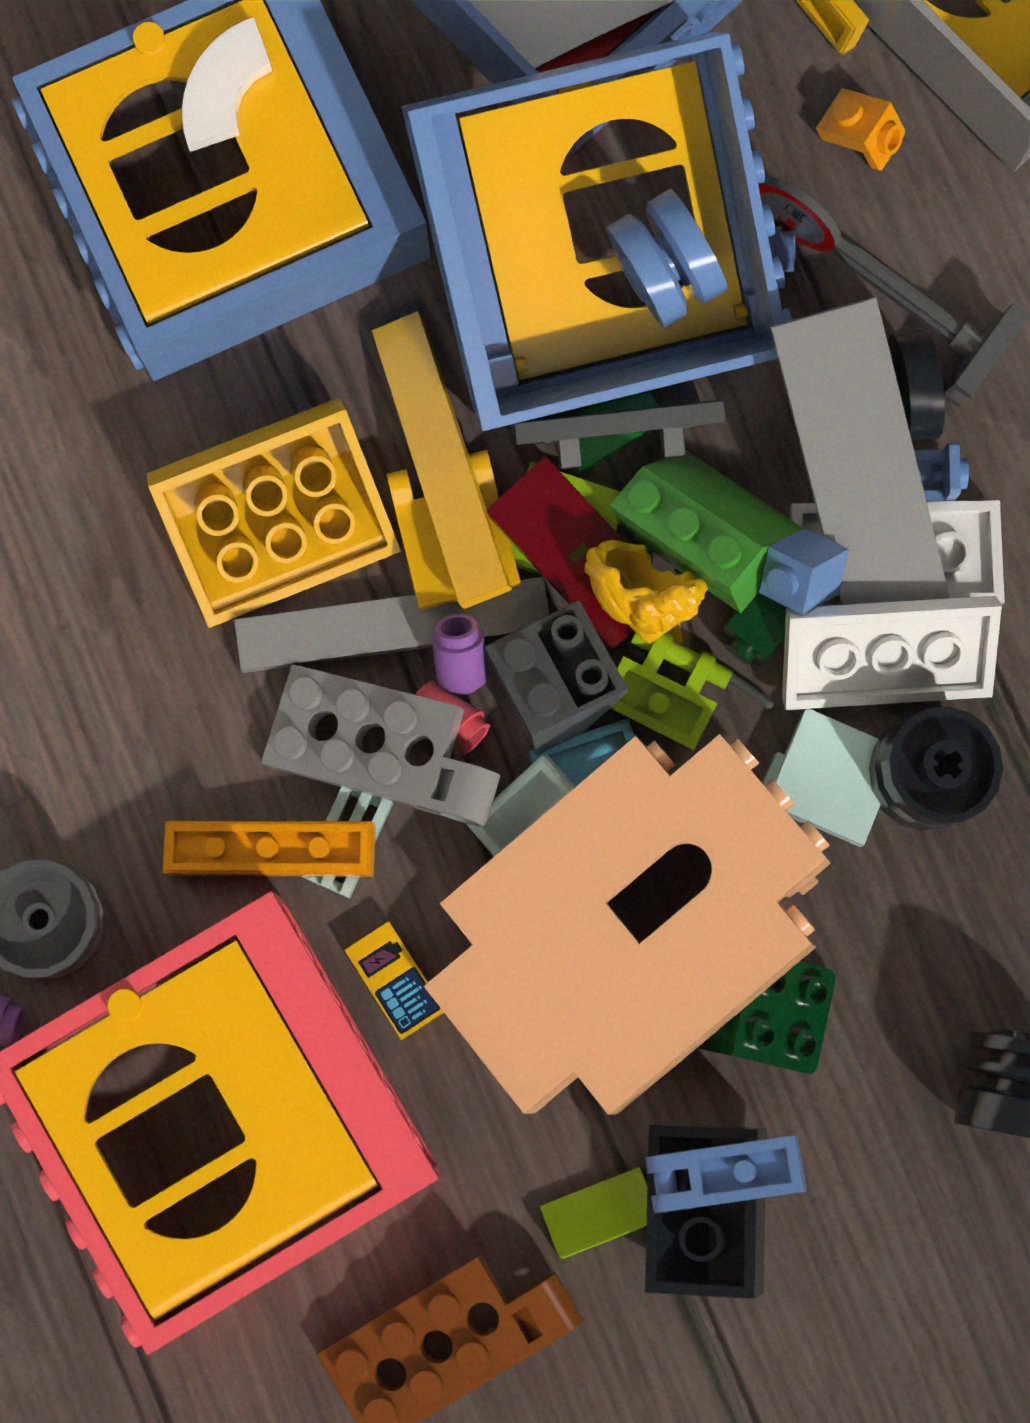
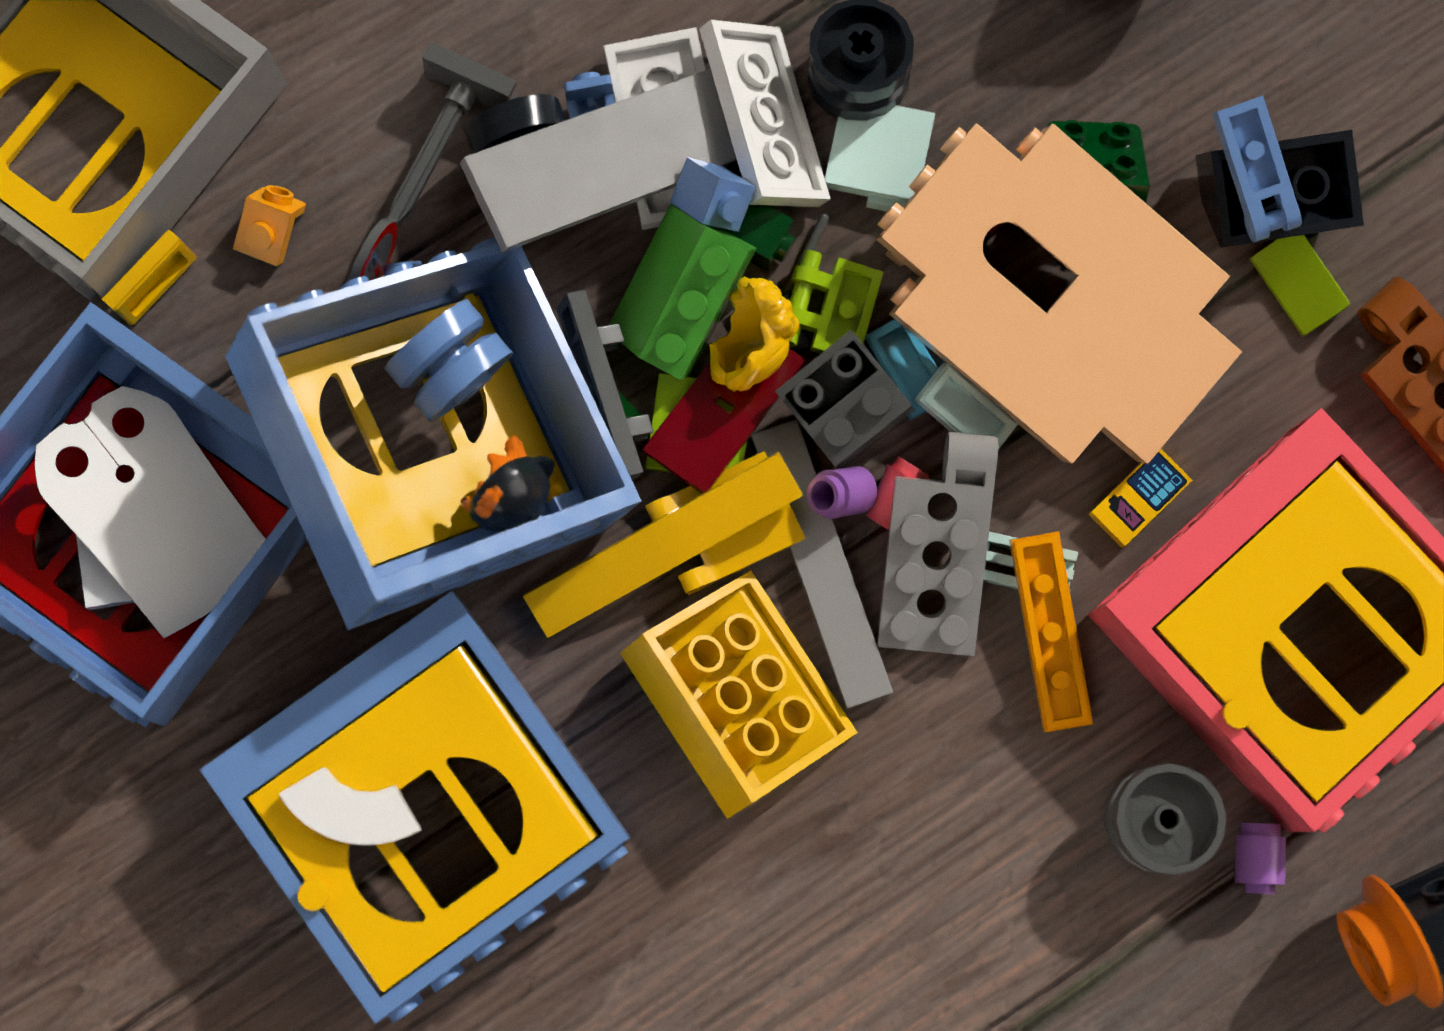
camera: 110 degrees left, 0 degrees up
(517, 297) = (513, 491): none -> black hair

